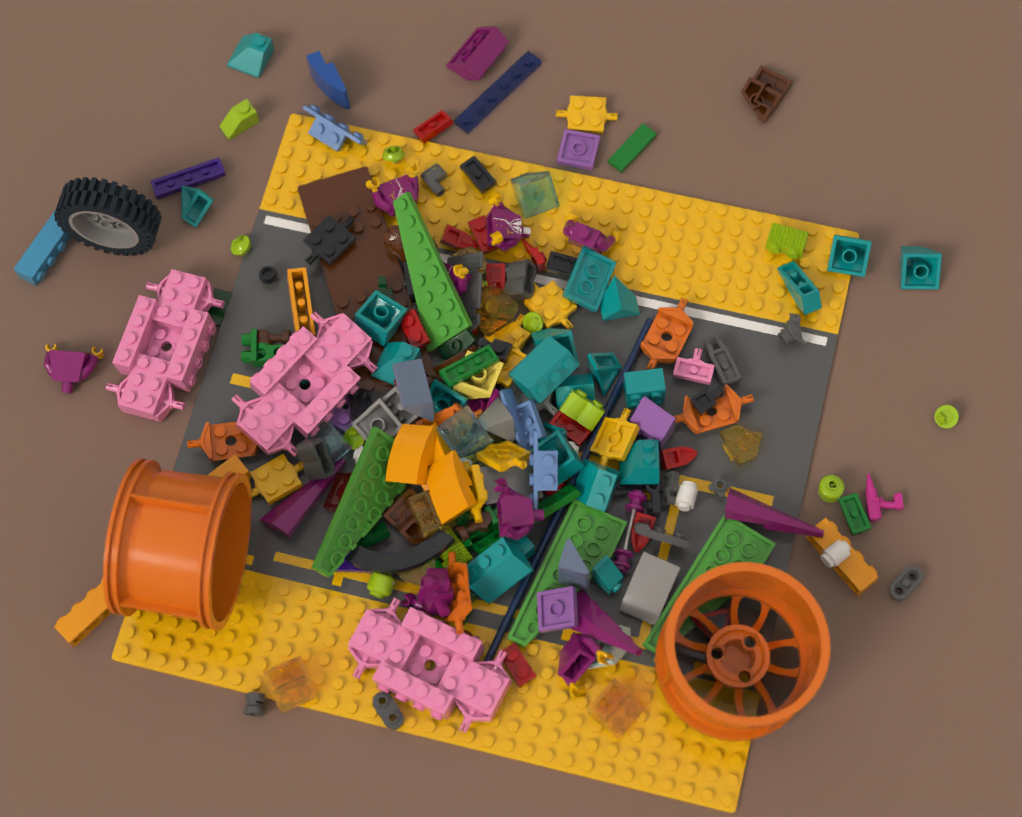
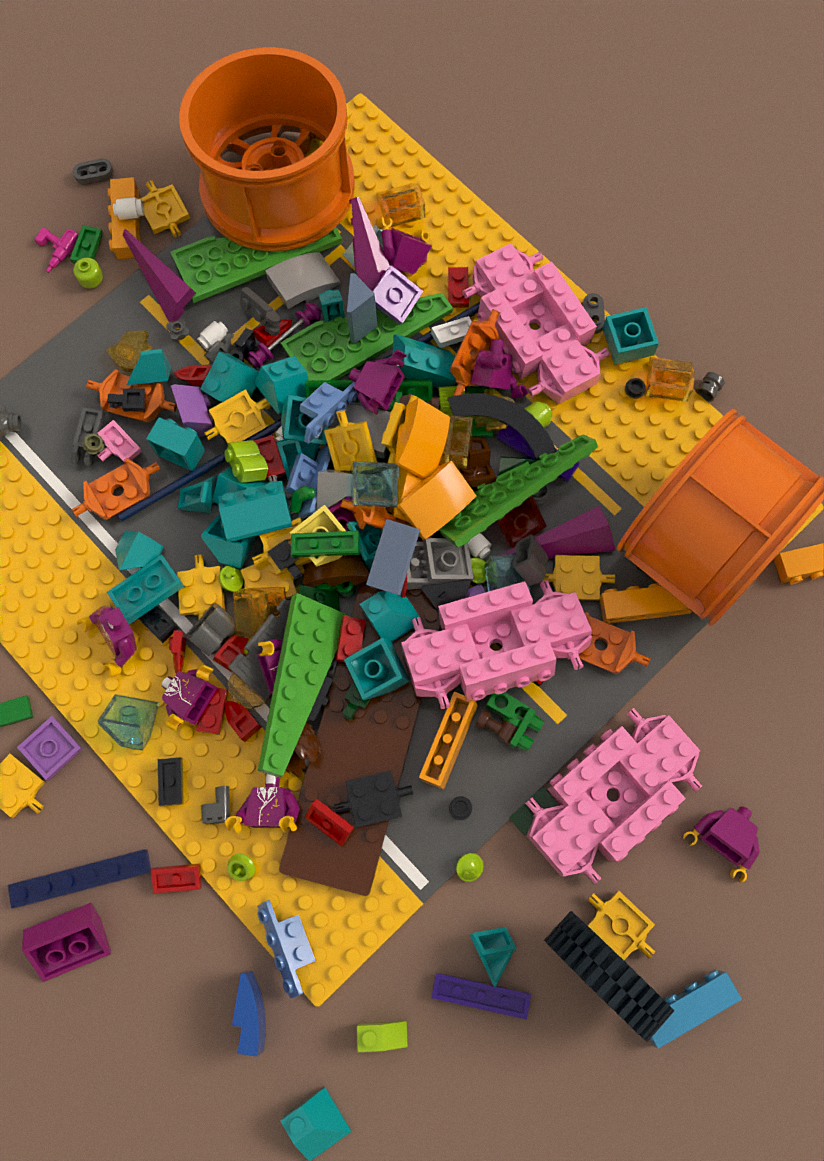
camera: 150 degrees left, 5 degrees up
(117, 270) = (621, 925): none -> yellow plate
(315, 662) = (635, 388): none -> black plate
(343, 699) = (630, 335): none -> teal brick
(344, 207) = (329, 822): none -> red plate
(492, 617) = (451, 332): none -> white plate
(516, 399) = (300, 495): none -> green arm
(703, 352) = (93, 438): none -> olive plate
(707, 435) = (150, 368): none -> teal slope
(821, 583) = (164, 209): none -> yellow plate

